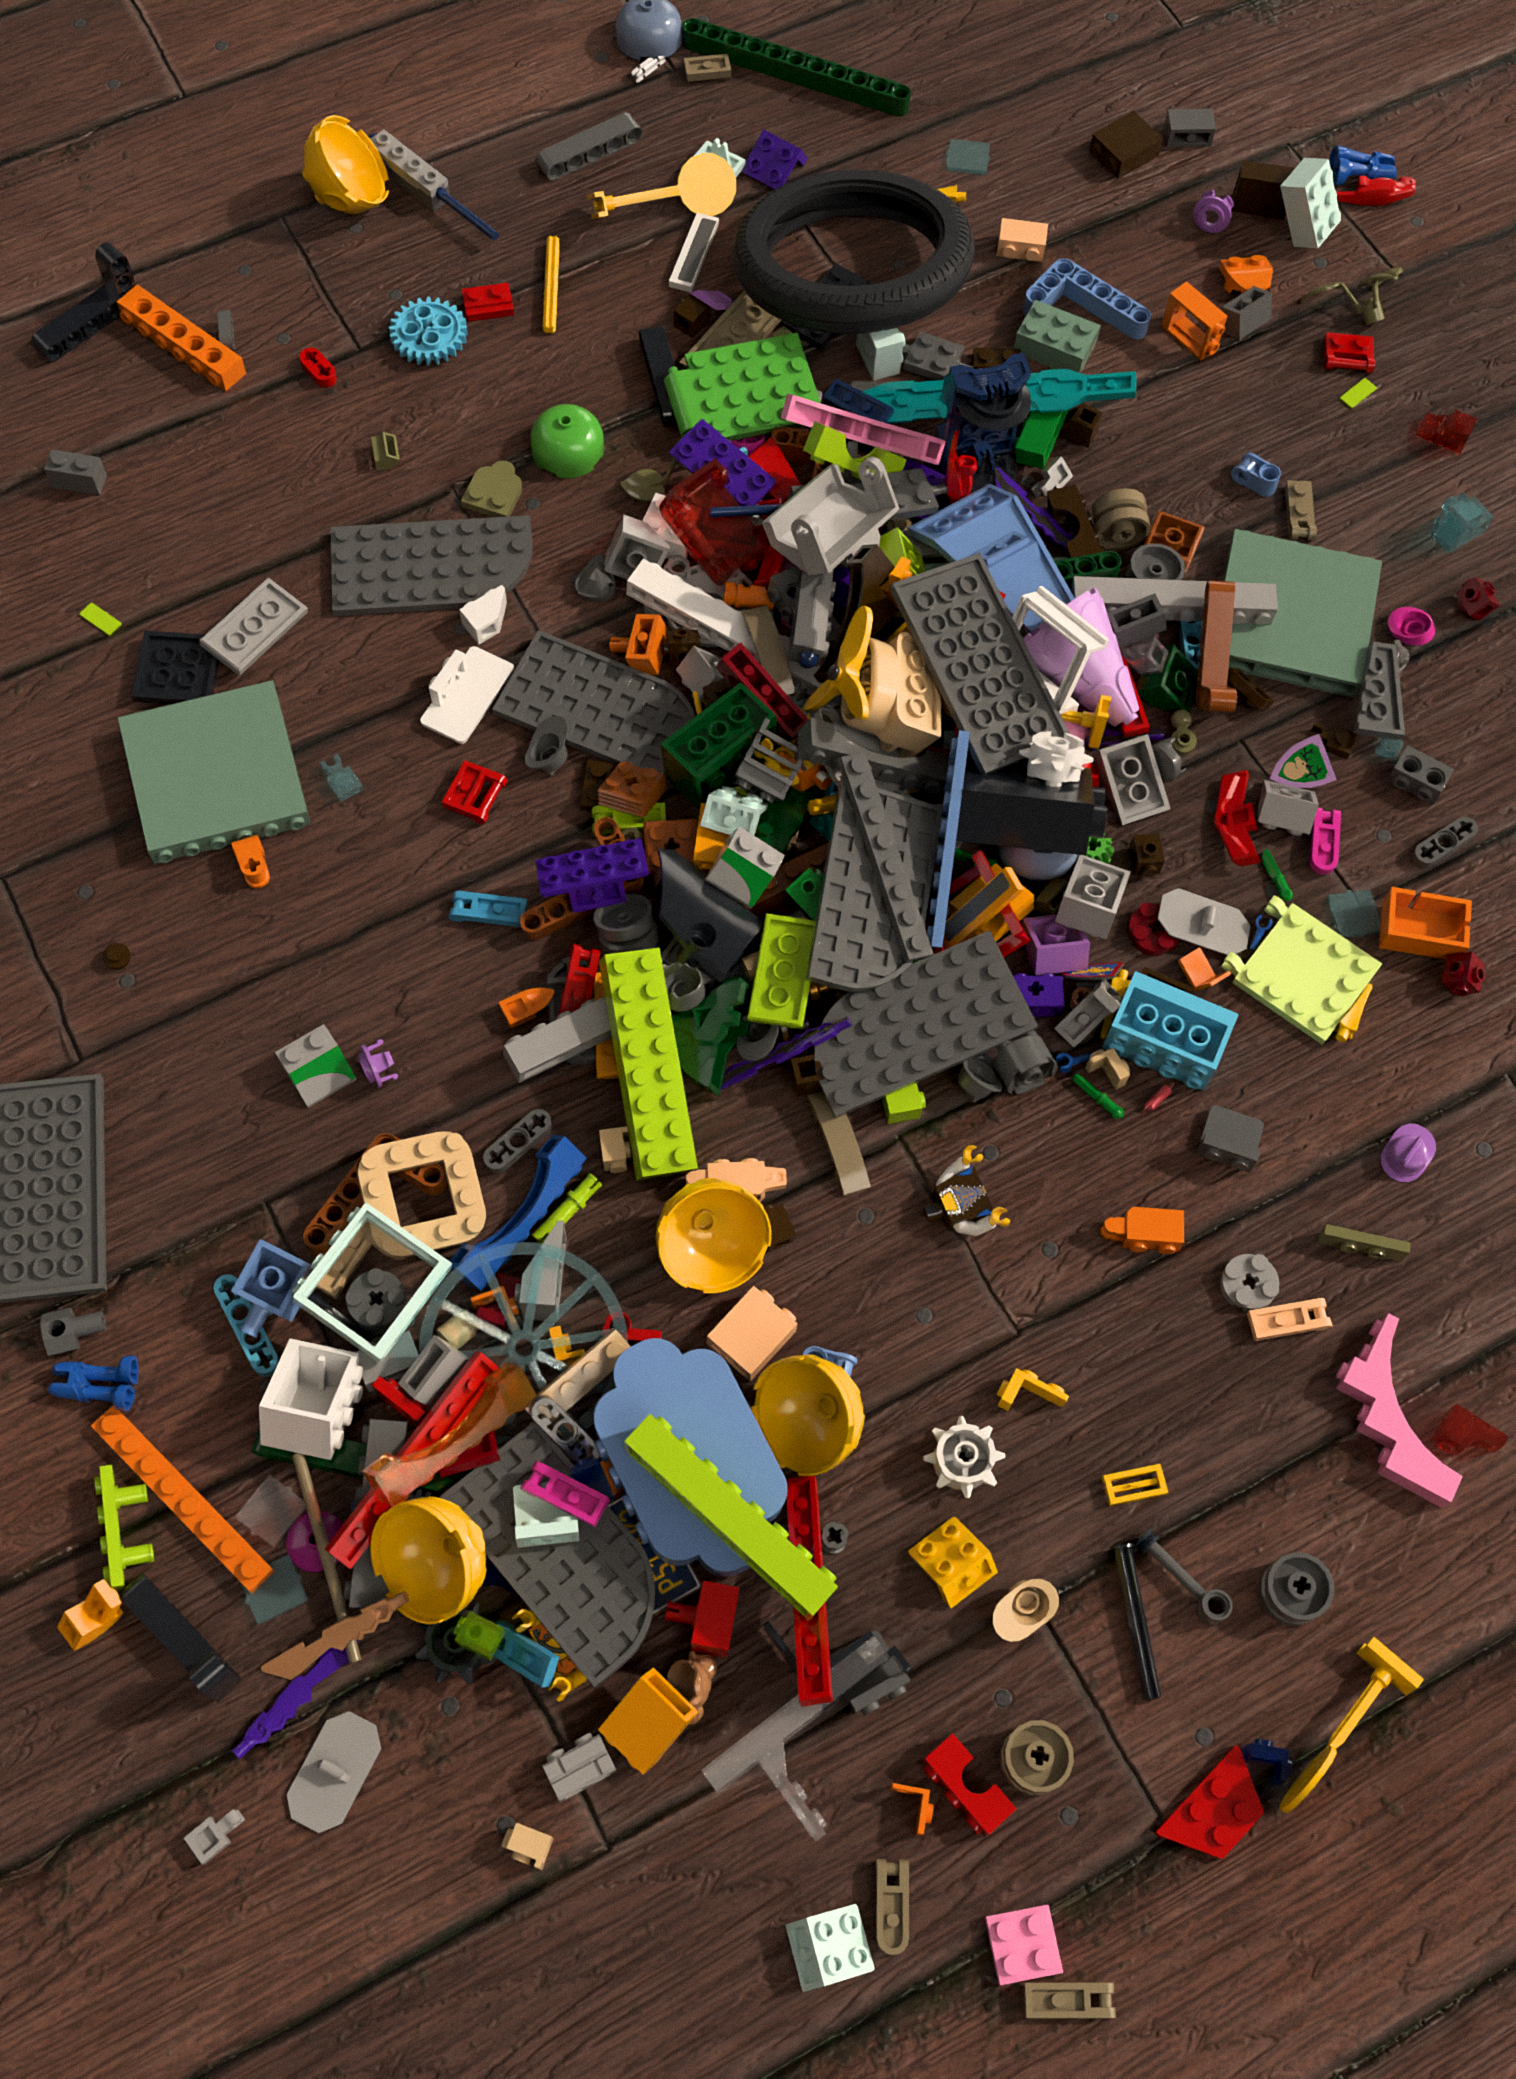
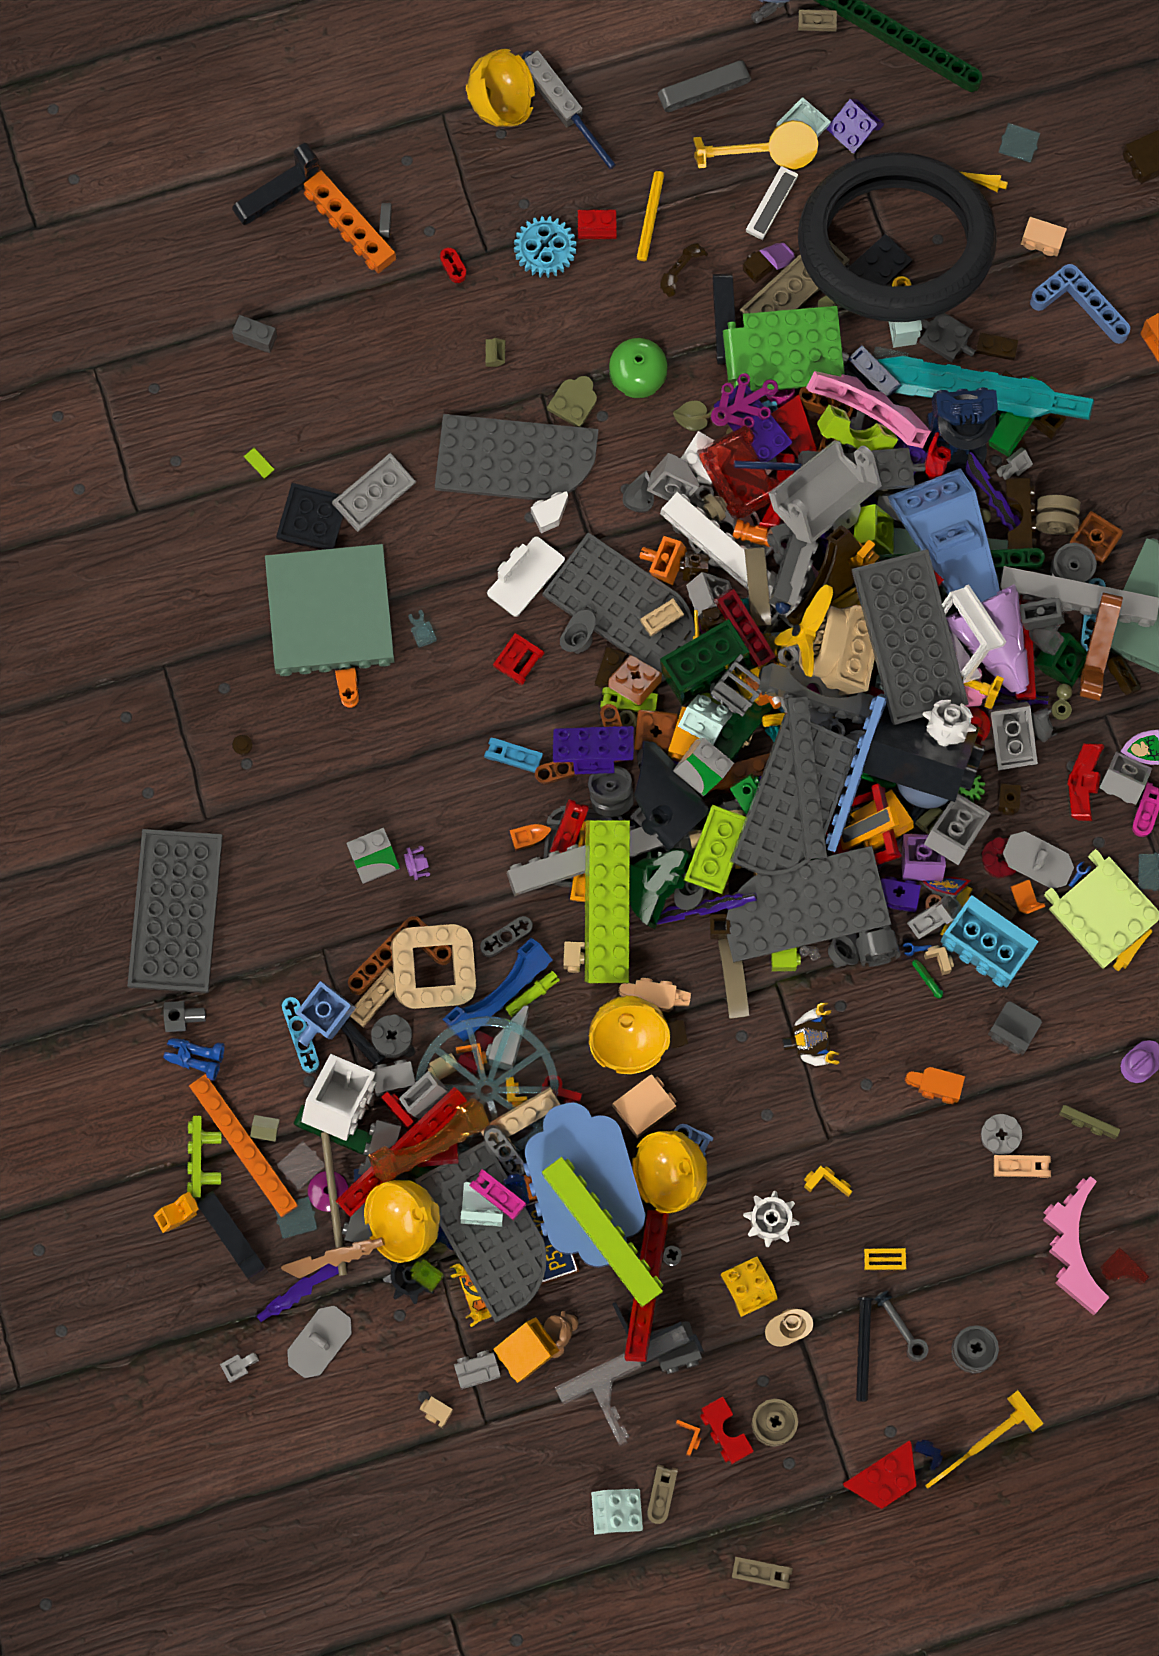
camera: 15 degrees right, 10 degrees up
(210, 1466) = (265, 1128): none -> olive piece
(339, 1243) = (345, 1021): light aqua window -> none
(526, 1656) = (454, 1293): dark azure plate -> none
(587, 341) = (669, 279): none -> dark brown piece
(652, 709) = (662, 617): none -> tan plate
(685, 988) = (643, 850): dark grey hair -> none
(694, 571) = (715, 507): none -> dark tan plate
(706, 442) = (742, 404): none -> magenta plant
(710, 1618) = (579, 1293): red brick -> none
(936, 1087) = (812, 951): none -> clear arm
(1023, 1945) = (740, 1534): bright pink plate -> none
(1056, 337) = (1049, 337): sand green brick -> none
(1158, 1098) = (970, 988): coral piece -> none
(1276, 876) = (1103, 829): green piece -> none

